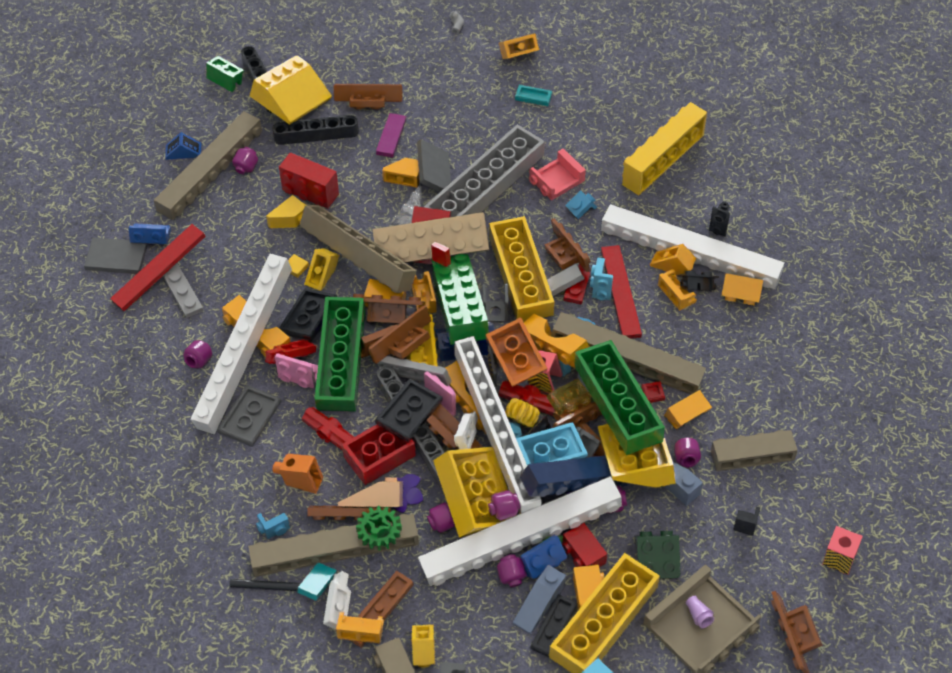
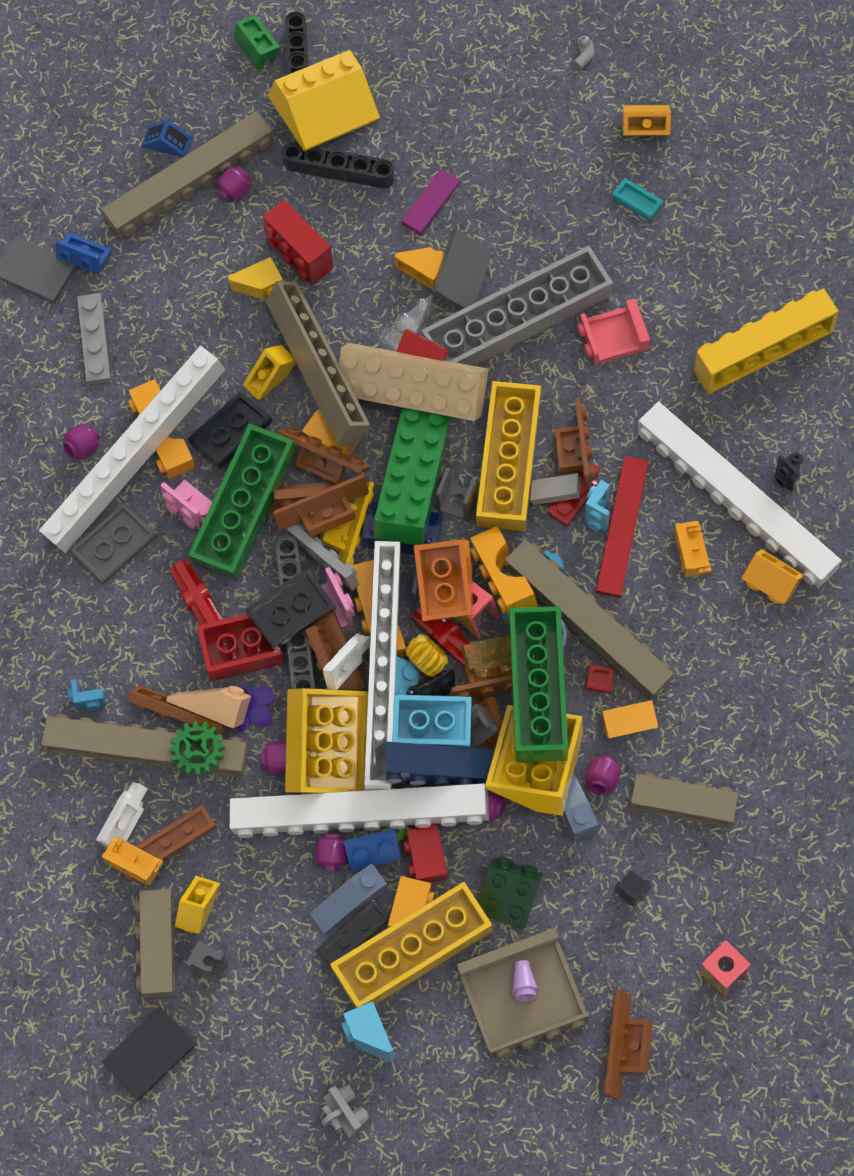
camera: 25 degrees right, 15 degrees up
(157, 267) = (75, 306): red tile -> none
(270, 585) = (60, 770): black bar -> none
(292, 349) = (187, 476): red hinge -> none
(298, 265) = (241, 355): yellow tile -> none
(300, 472) = (139, 641): orange torso -> none
(316, 581) = (109, 785): tile -> none
(368, 94) = (423, 134): dark orange bracket -> none
(424, 289) = (379, 449): light orange hinge -> none
(440, 254) = (410, 410): red tile -> none
(504, 505) = (347, 774): magenta head -> none
(580, 204) = (626, 385): dark azure bracket -> none
(674, 258) = (706, 506): light orange slope -> none
(691, 279) = (713, 543): black hinge -> none

